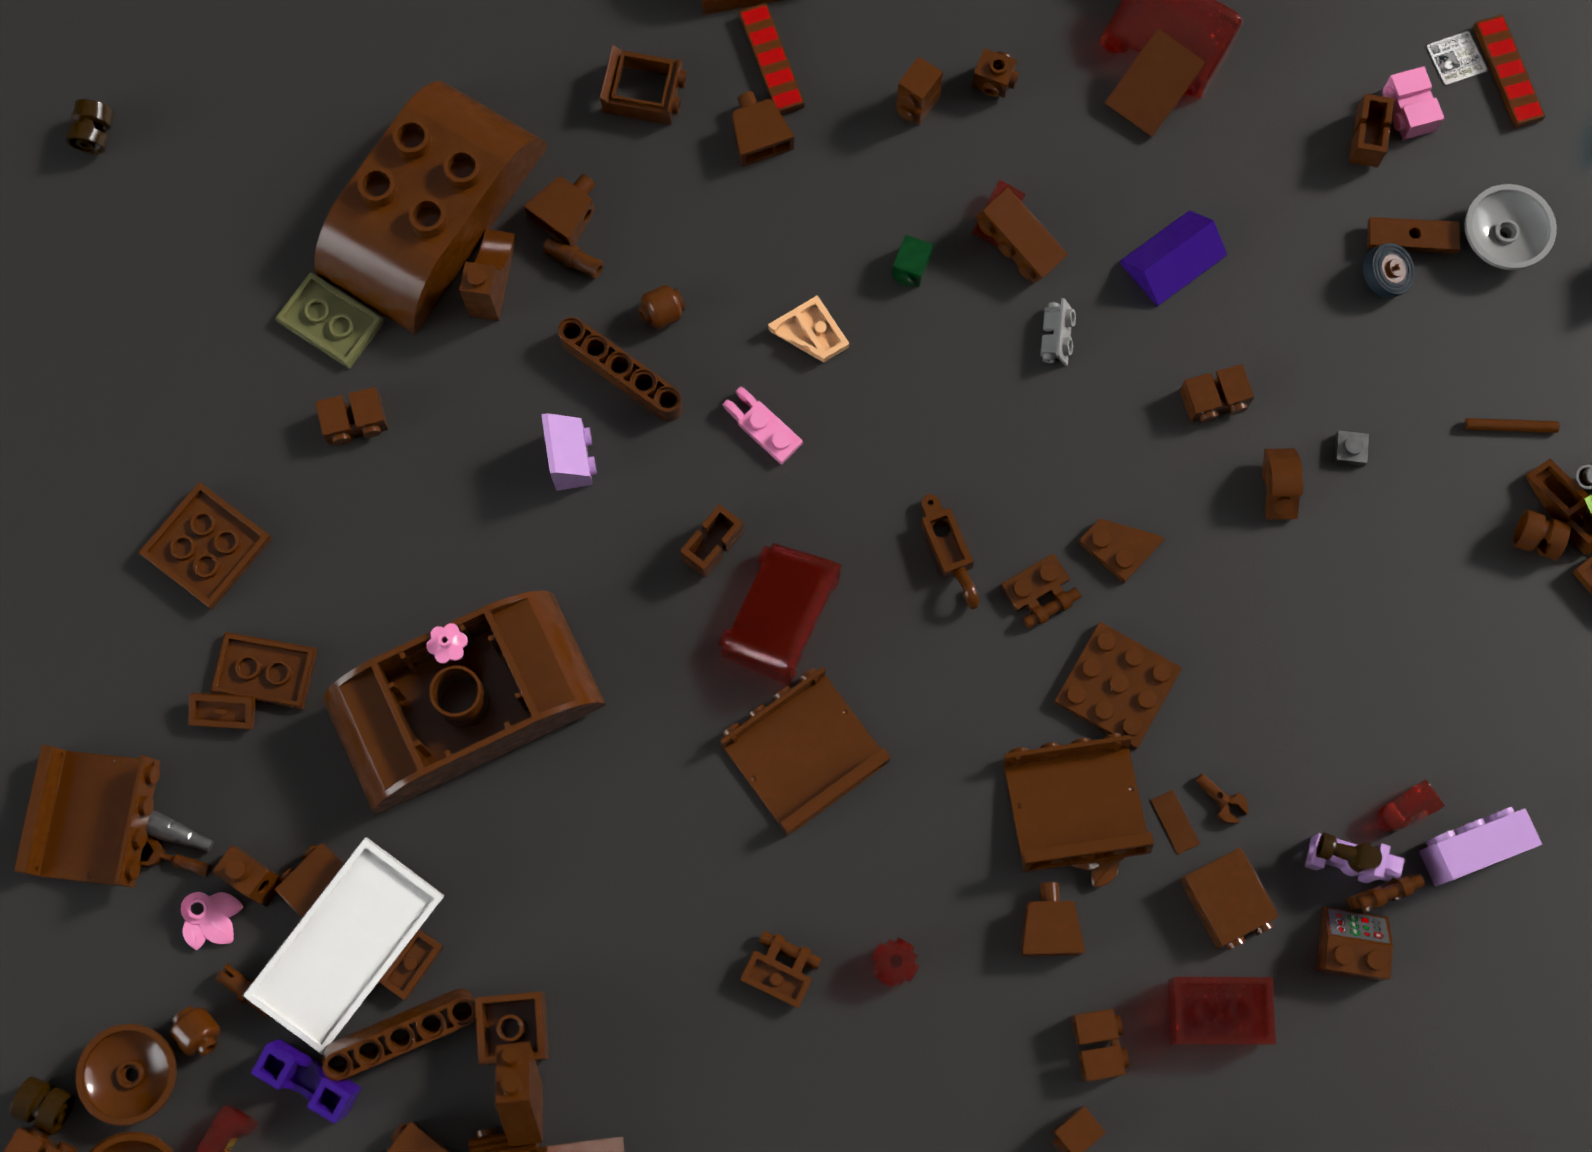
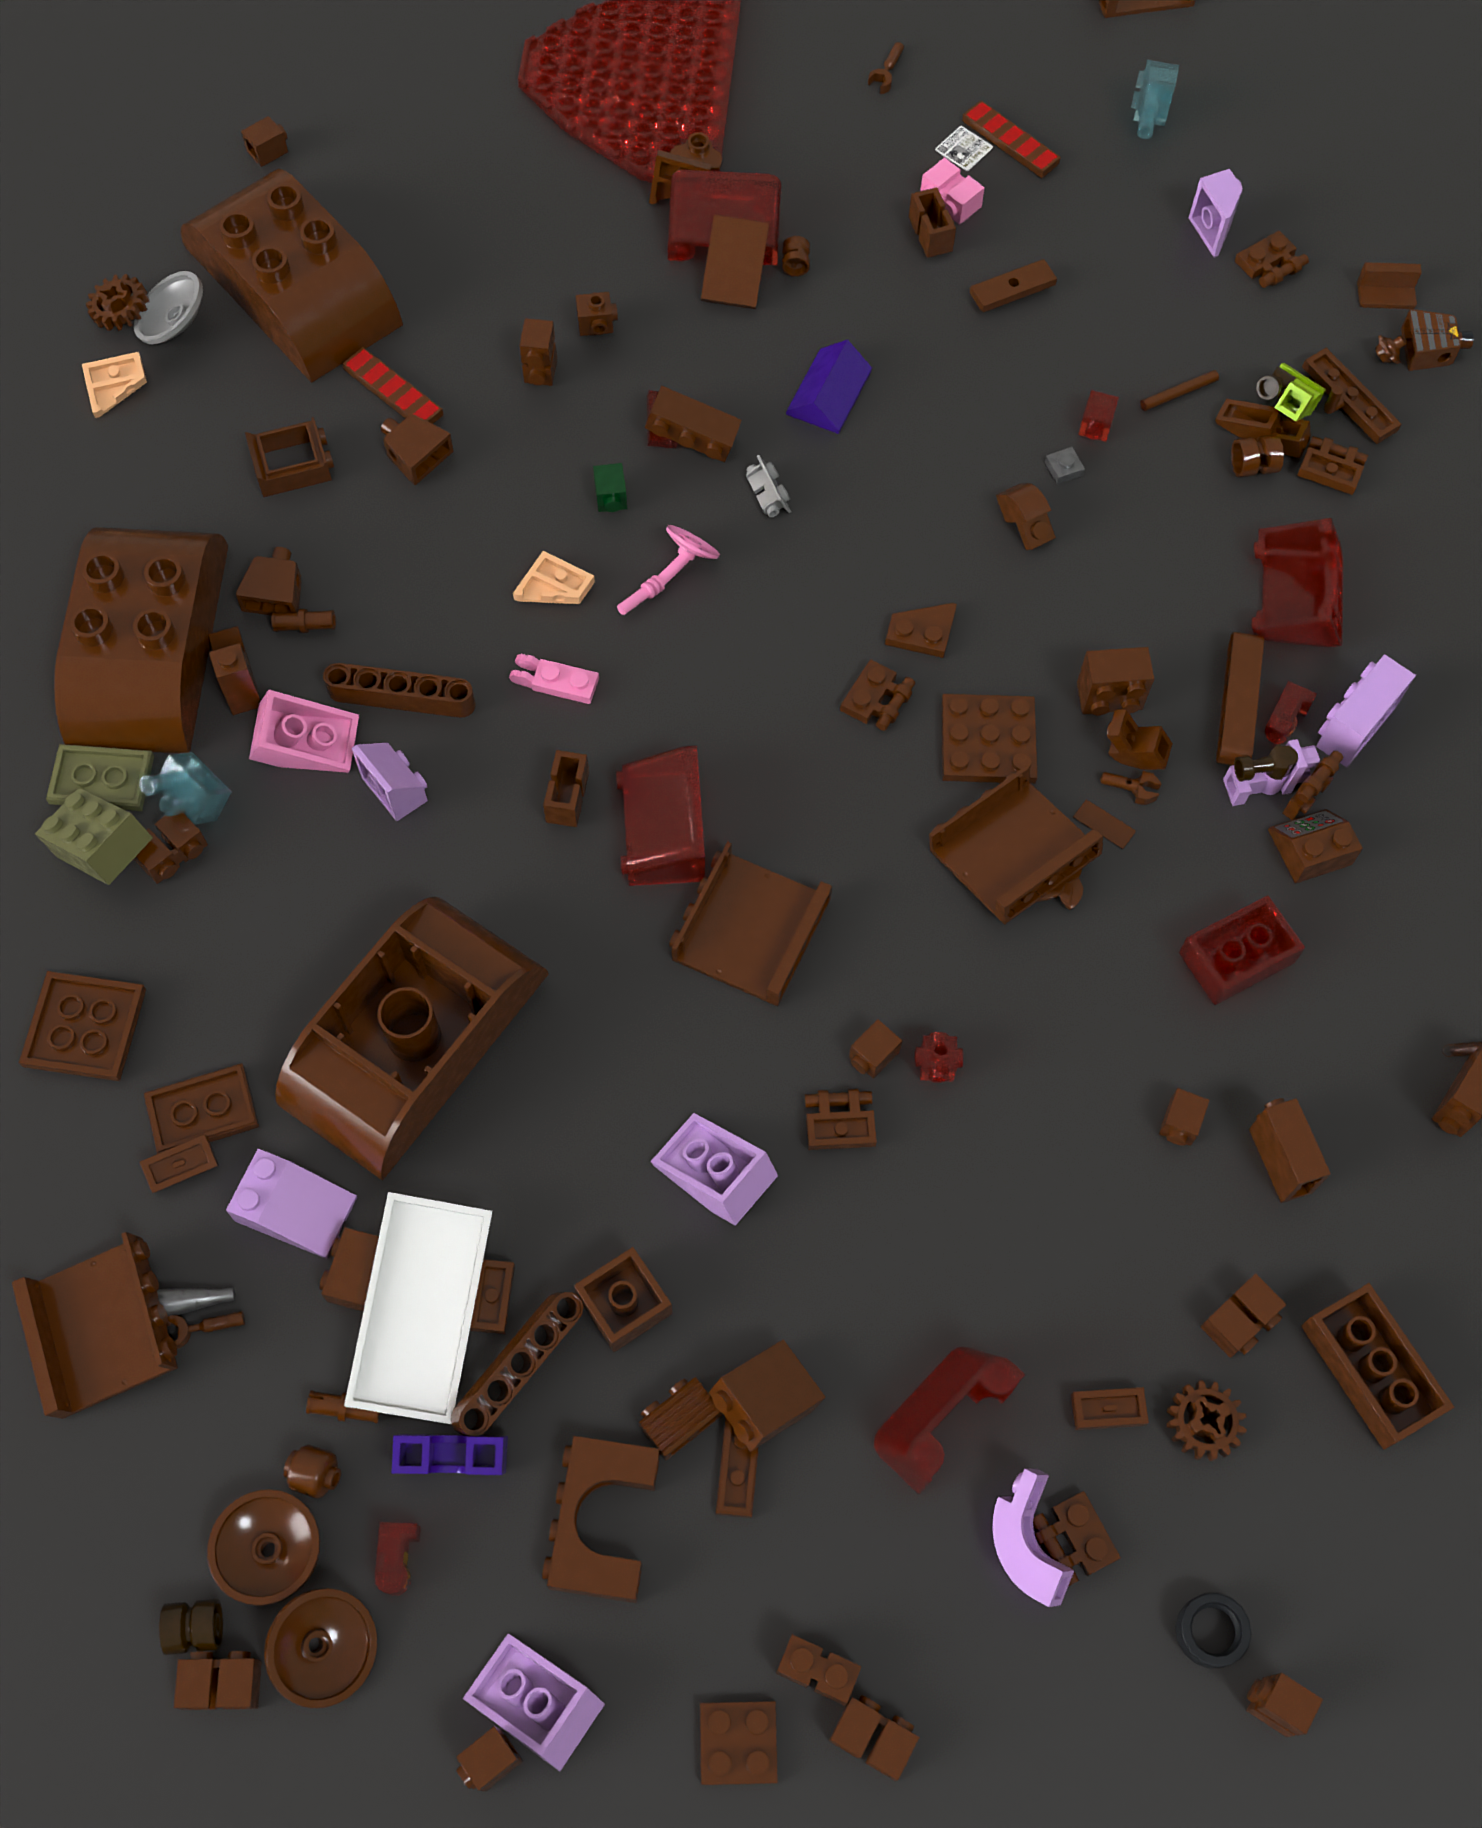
camera: 30 degrees left, 10 degrees down
(212, 922) = (274, 1361): bright pink plate -> none
(247, 875) = (284, 1296): reddish brown torso -> none
(292, 380) = (93, 835): none -> olive brick
(292, 795) = (291, 1204): none -> lavender slope
(395, 371) = (187, 788): none -> clear light blue brick
(452, 648) = (375, 978): bright pink plant -> none
(517, 370) = (303, 734): none -> bright pink slope
(519, 1094) = (667, 1346): reddish brown brick -> none
(651, 954) = (716, 1168): none -> lavender slope
(661, 307) = (408, 622): reddish brown head -> none
(844, 924) = (874, 1049): none -> reddish brown brick
(946, 361) = (689, 548): none -> bright pink dish
(951, 550) = (783, 698): reddish brown piece -> none
(1051, 925) = (1055, 958): reddish brown torso -> none
(1099, 1027) = (1147, 1020): reddish brown piece -> none
(1208, 396) = (926, 479): reddish brown piece -> none
(1221, 100) = (796, 253): none -> reddish brown wheel
(1230, 899) = (1190, 858): reddish brown brick -> none
(1247, 765) = (1137, 746): none -> reddish brown brick
(1261, 695) = (1115, 680): none -> reddish brown brick
(1372, 770) = (1240, 697): none -> reddish brown beam
(1389, 270) = (1010, 318): black wheel -> none
(1412, 415) = (1098, 416): none -> clear red brick
(1501, 689) = (1301, 584): none -> clear red windscreen
(1521, 216) = (1086, 242): light grey dish -> none

